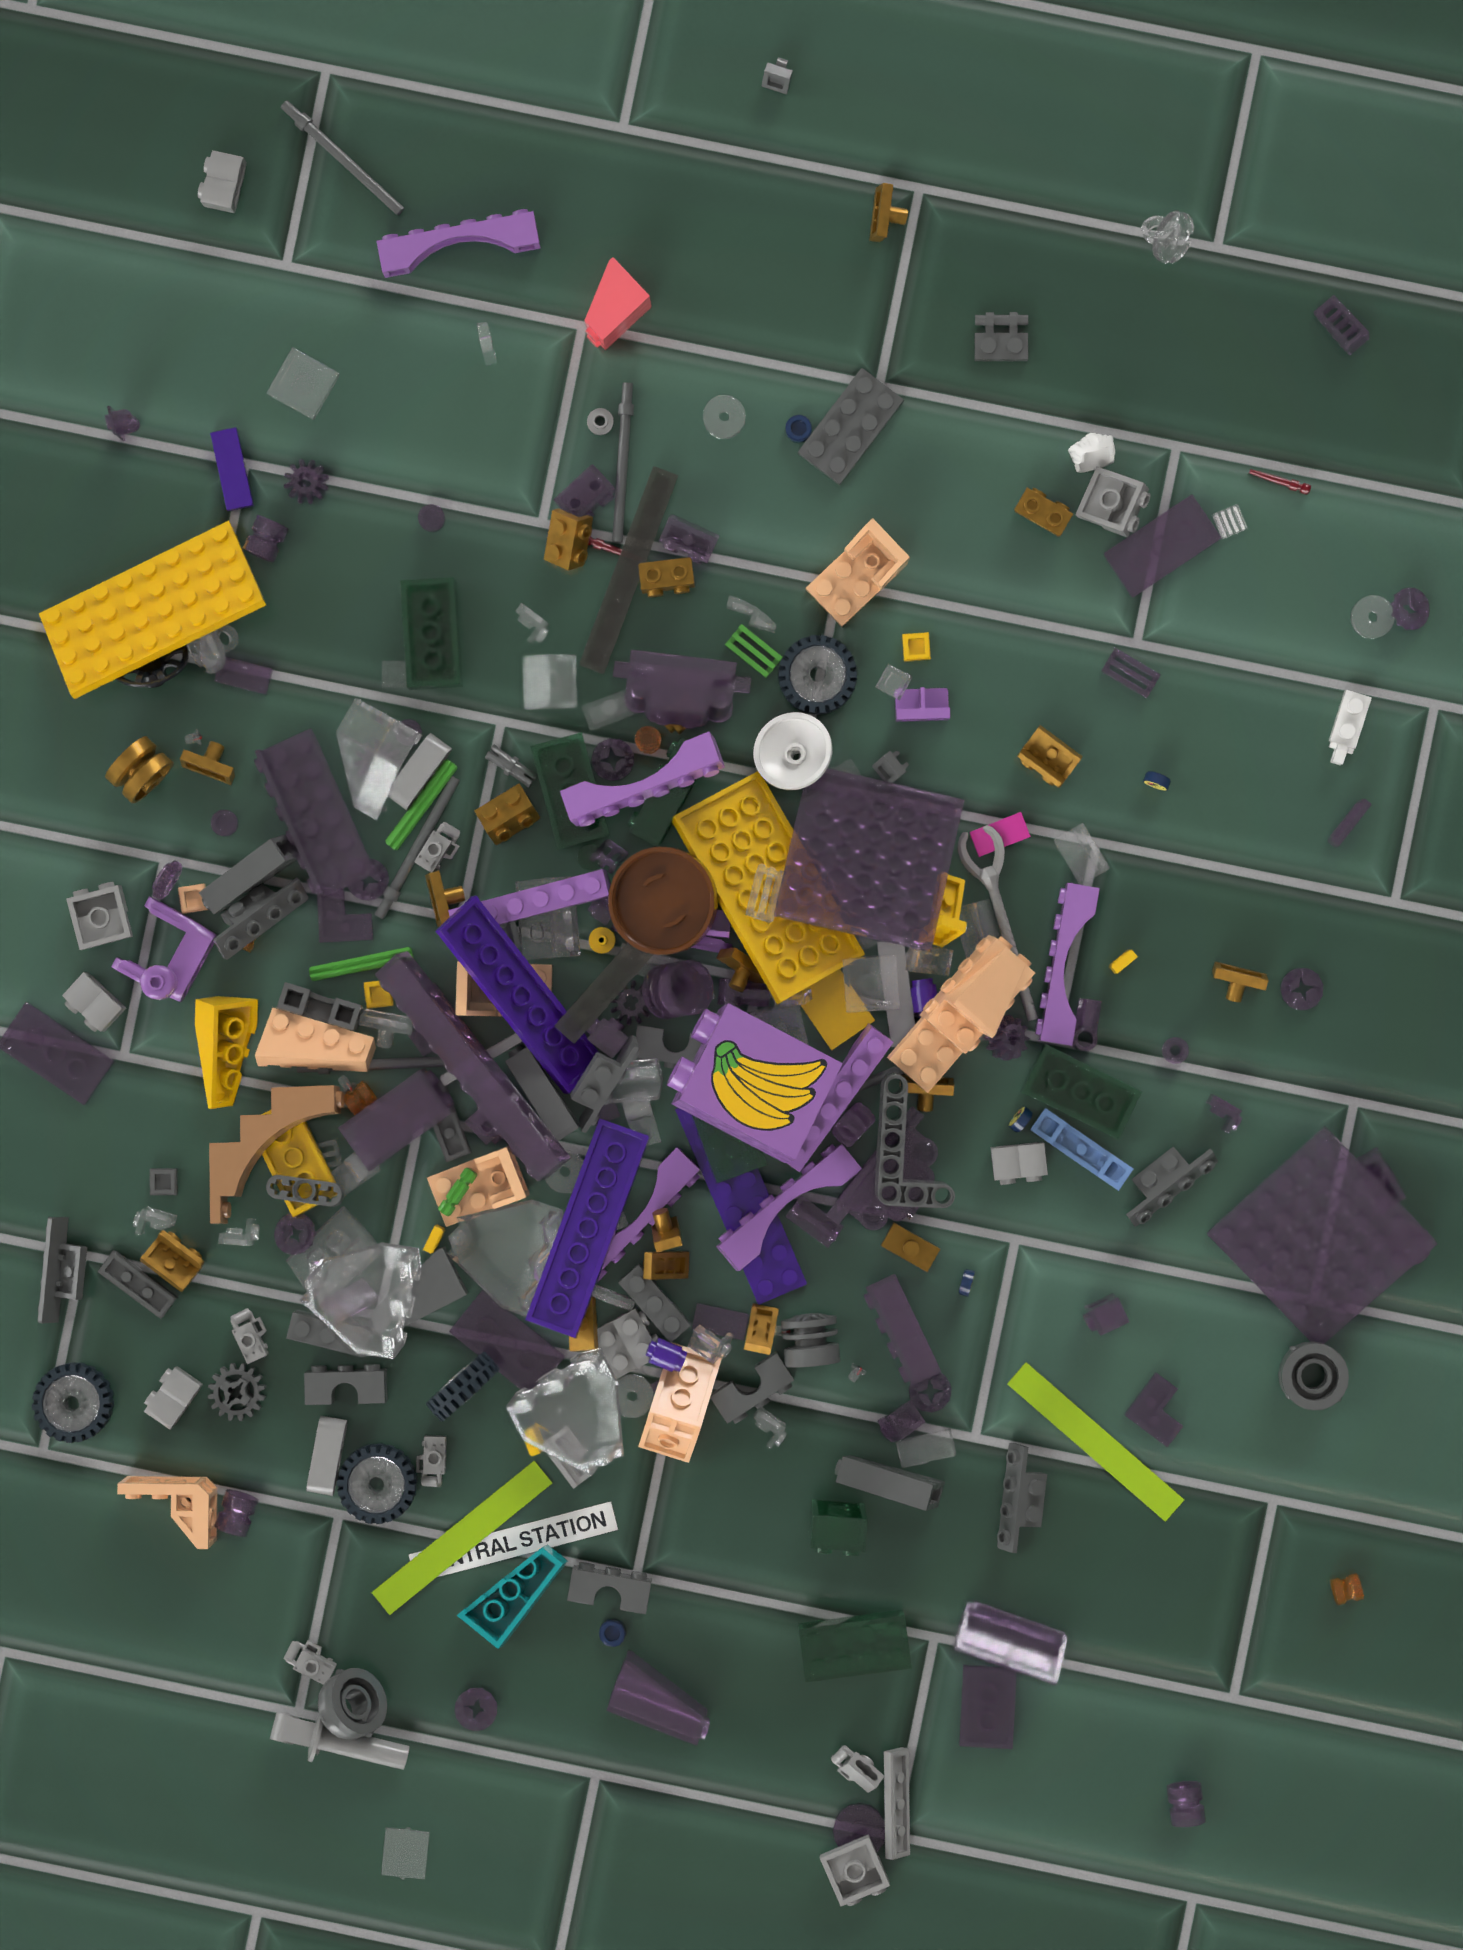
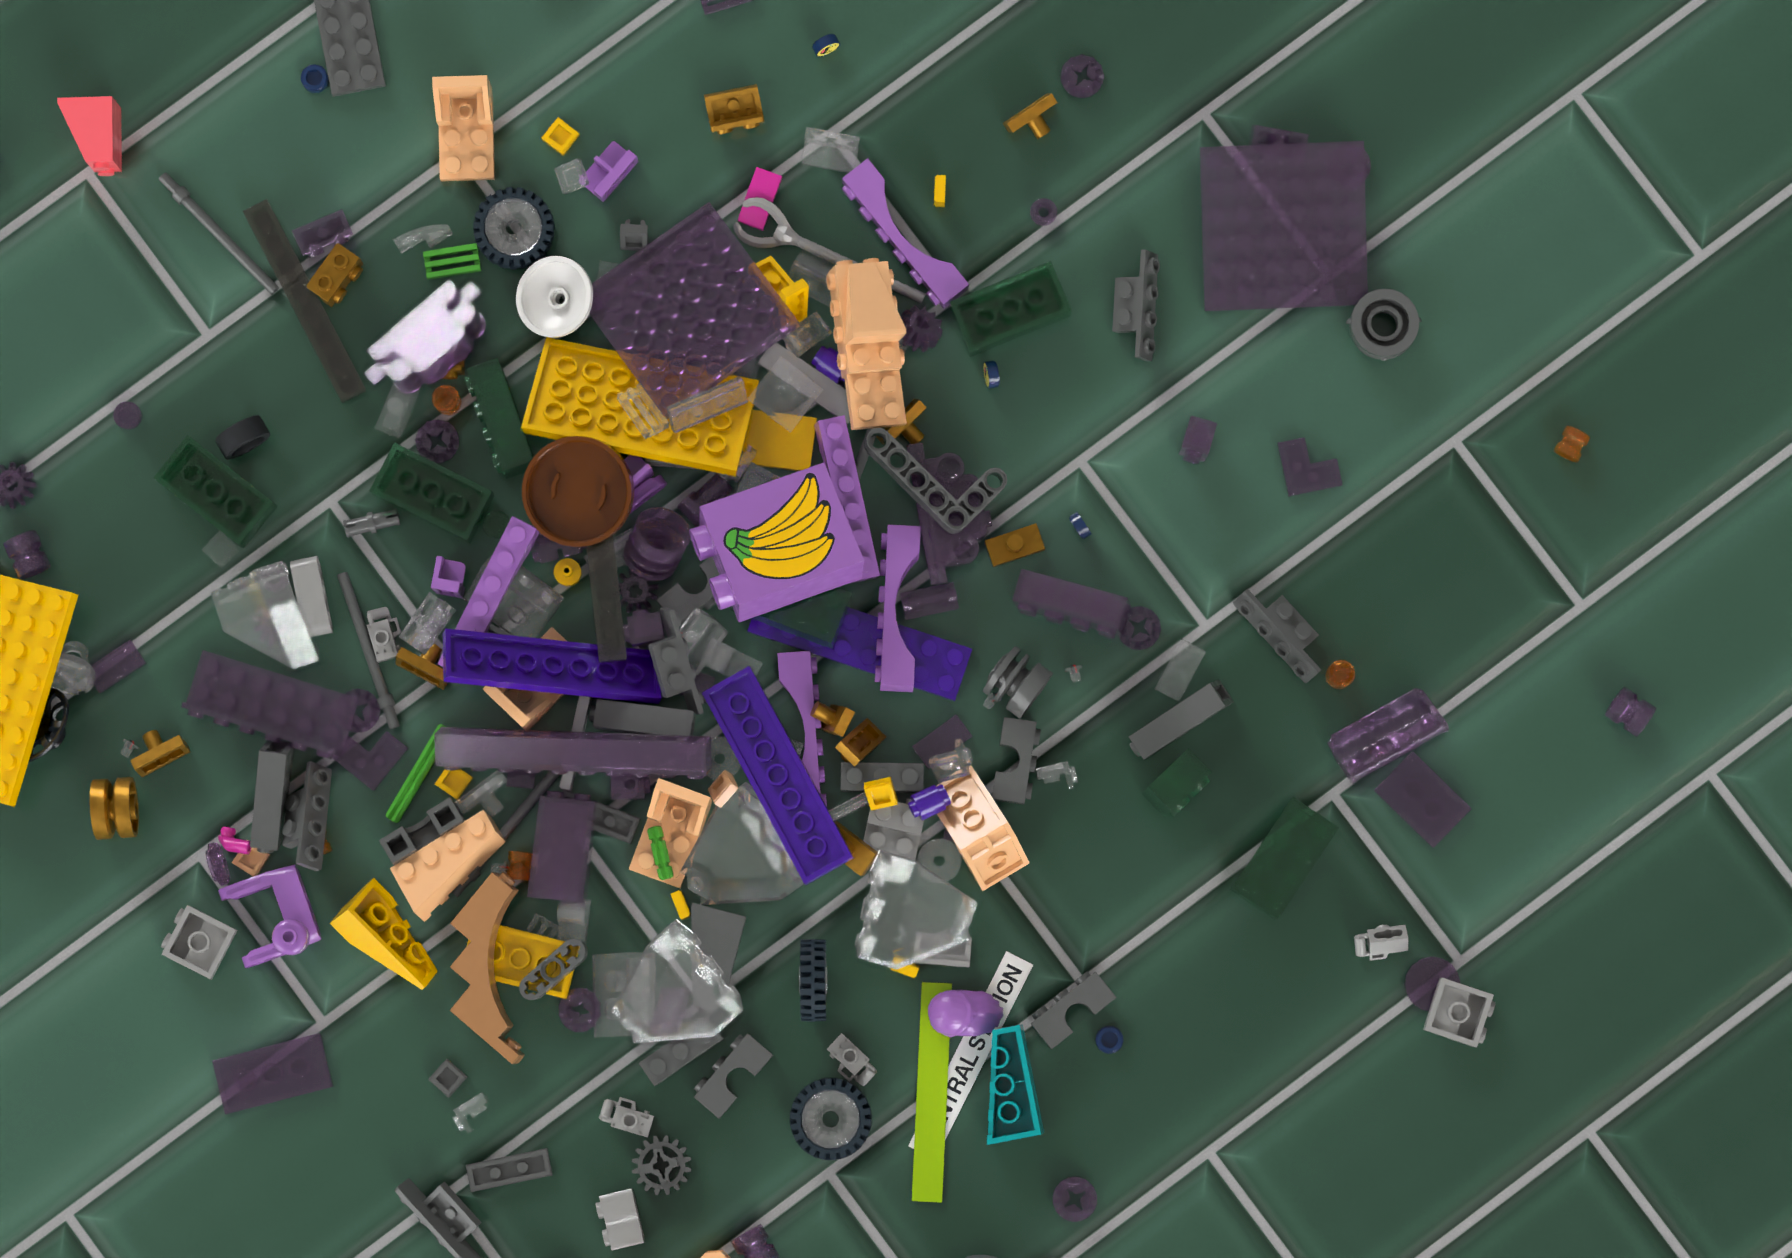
camera: 45 degrees left, 5 degrees down
(93, 1002) = (260, 1007): light grey brick -> none
(173, 1260) = (515, 1123): pearl gold bracket -> none
(190, 875) = (232, 844): none -> dark pink arm
(224, 823) = (215, 782): clear purple tile -> none
(234, 1236) = (540, 1058): clear bracket -> none
(327, 1455) = (774, 1139): light grey beam -> none
(421, 804) = (338, 618): bright green axle -> none
(473, 873) = (427, 623): none -> clear bracket
(486, 343) = (34, 253): clear piece -> none
(488, 617) = (242, 437): none -> black tyre
(507, 814) = (406, 558): pearl gold bracket -> none
(507, 1340) = (813, 916): clear purple tile -> none
(519, 860) = (448, 577): none -> medium lavender panel
(529, 619) = (272, 407): clear bracket -> none
(538, 1512) = (964, 1013): none -> medium lavender hair
(544, 1195) = (723, 788): none -> light nougat tile
(549, 681) = (334, 436): clear slope -> none
(568, 539) = (238, 324): pearl gold bracket -> none
(586, 493) = (217, 283): clear purple brick -> none
(600, 544) = (265, 305): dark red piece -> none
(606, 427) = (174, 230): light grey plate -> none
(606, 860) = (518, 506): tile -> none
(640, 1314) = (880, 793): none -> yellow tile
(656, 1702) = (1187, 1051): clear purple slope -> none
(693, 760) = (492, 372): medium lavender arch -> none
(728, 405) = (248, 115): clear piece -> none
(743, 967) = (684, 479): pearl gold tile -> none
(761, 1329) = (975, 713): pearl gold tile -> none
(811, 936) = (707, 404): none -> clear tile
(853, 1124) = (881, 503): clear purple gear -> none
(896, 1803) = (1435, 934): light grey tile -> none
(901, 1422) = (1142, 671): clear purple bracket -> none
(1019, 1162) = (1022, 403): light grey brick -> none
(1027, 1572) = (1340, 670): none -> clear orange wheel
(1081, 1149) = (1055, 348): medium blue slope -> none
(1087, 1021) = (962, 258): clear purple piece -> none
(1095, 1441) = (1290, 536): lime sticker -> none
(1223, 1108) = (1118, 215): clear purple bracket -> none

